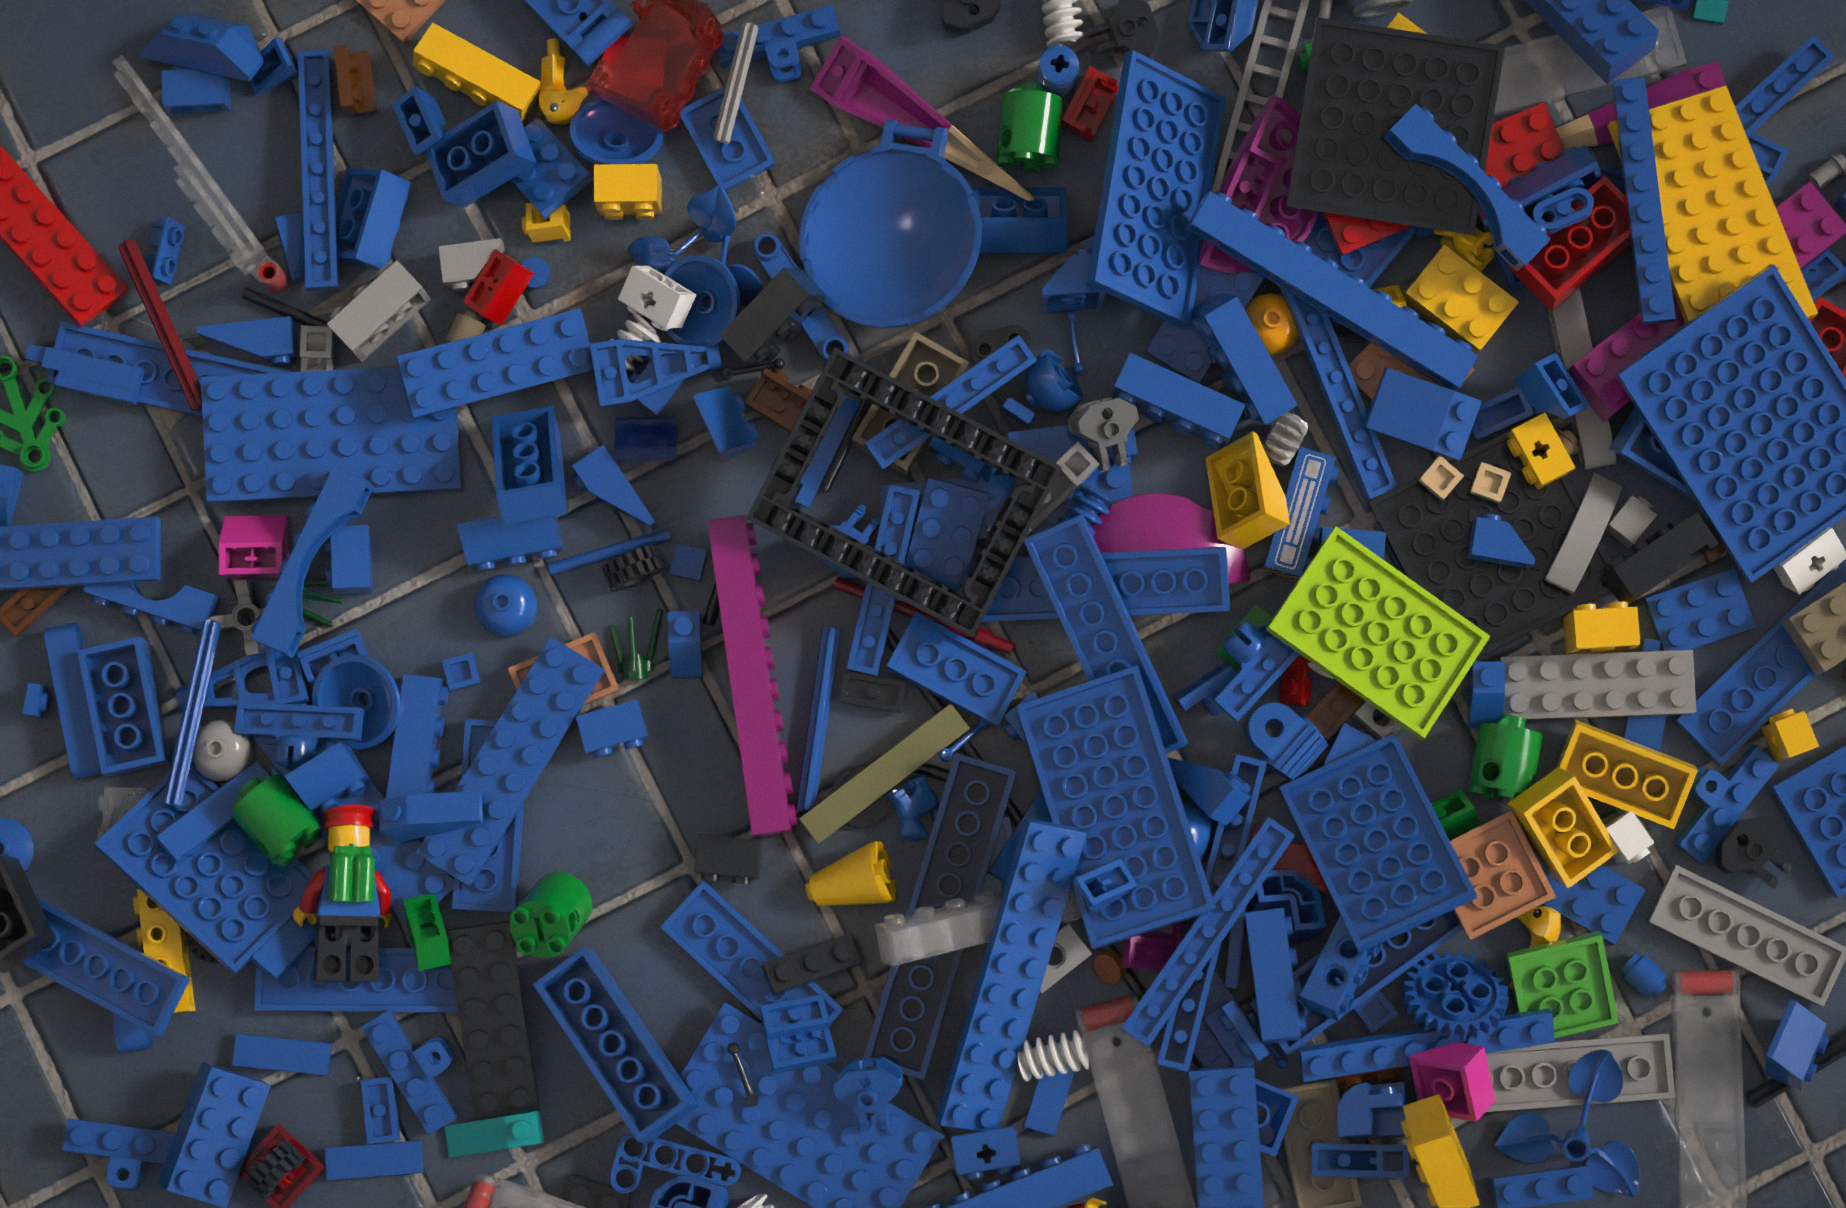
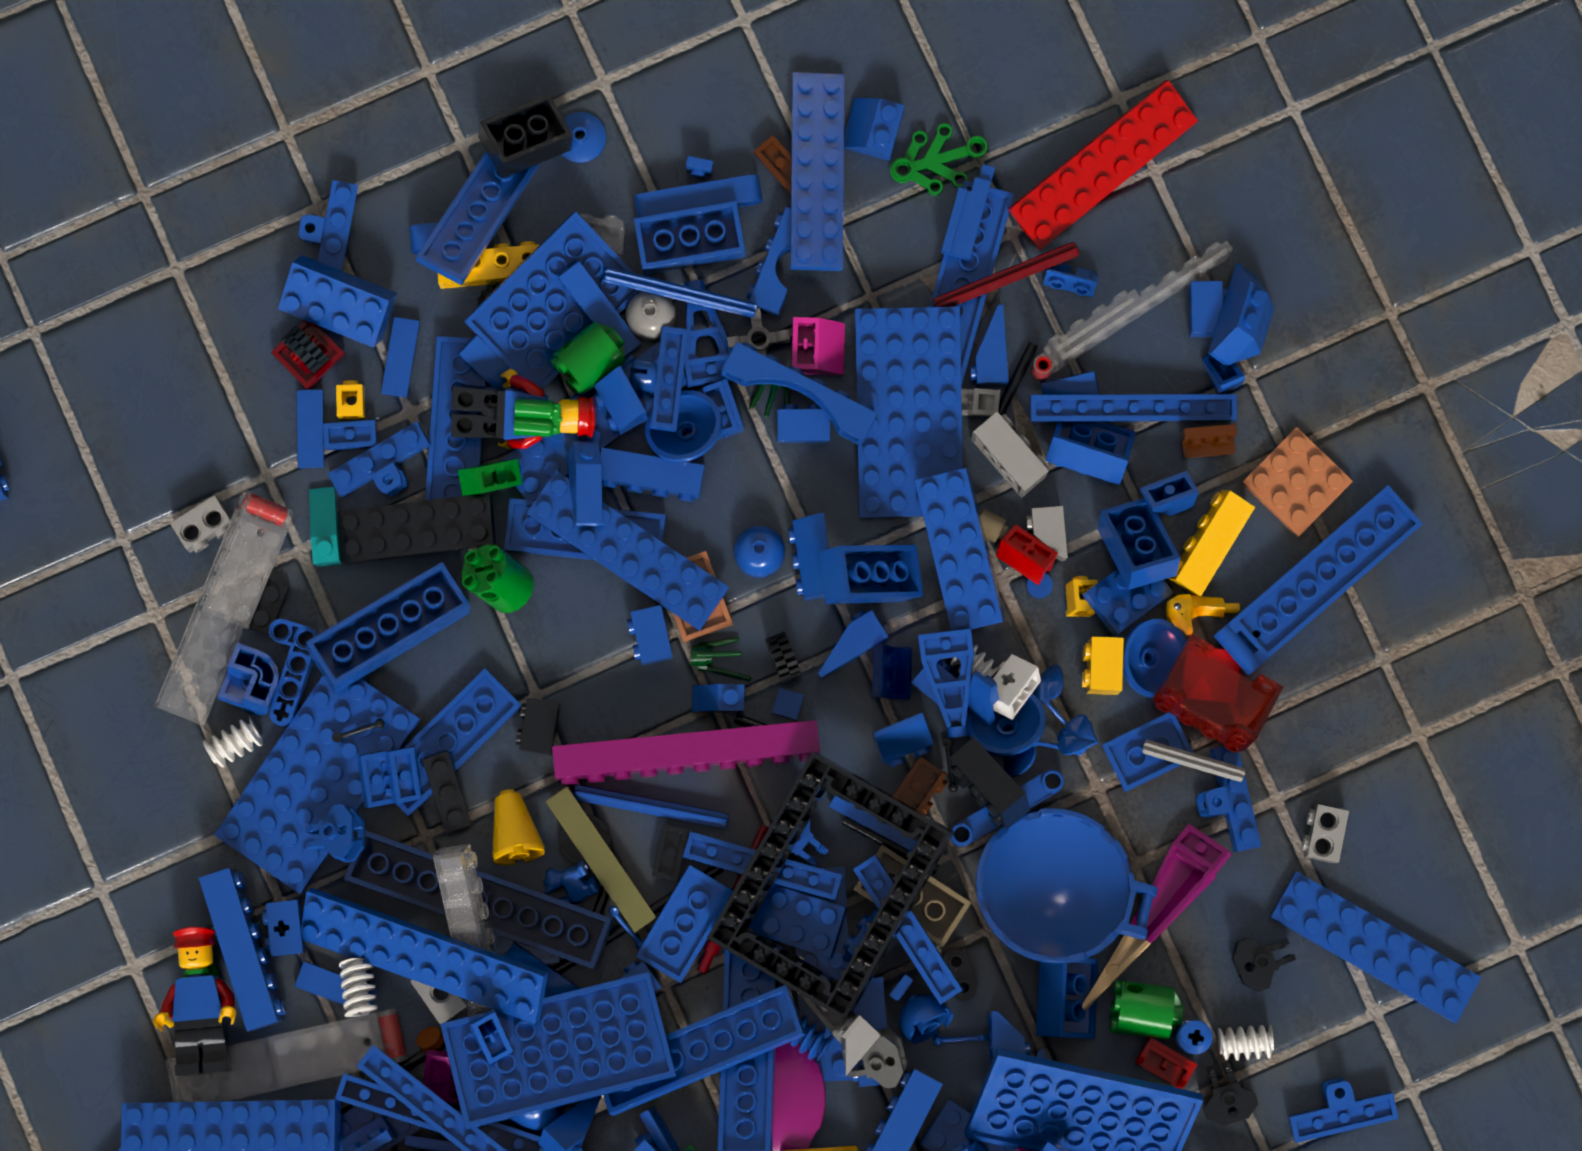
camera: 90 degrees right, 0 degrees up
(323, 1111) = (343, 392): none -> yellow brick
(461, 671) = (705, 512): blue plate -> none
(608, 552) = (800, 638): blue bar -> none
(668, 326) = (982, 698): none -> blue slope
(1083, 454) = (856, 1040): none -> light grey slope

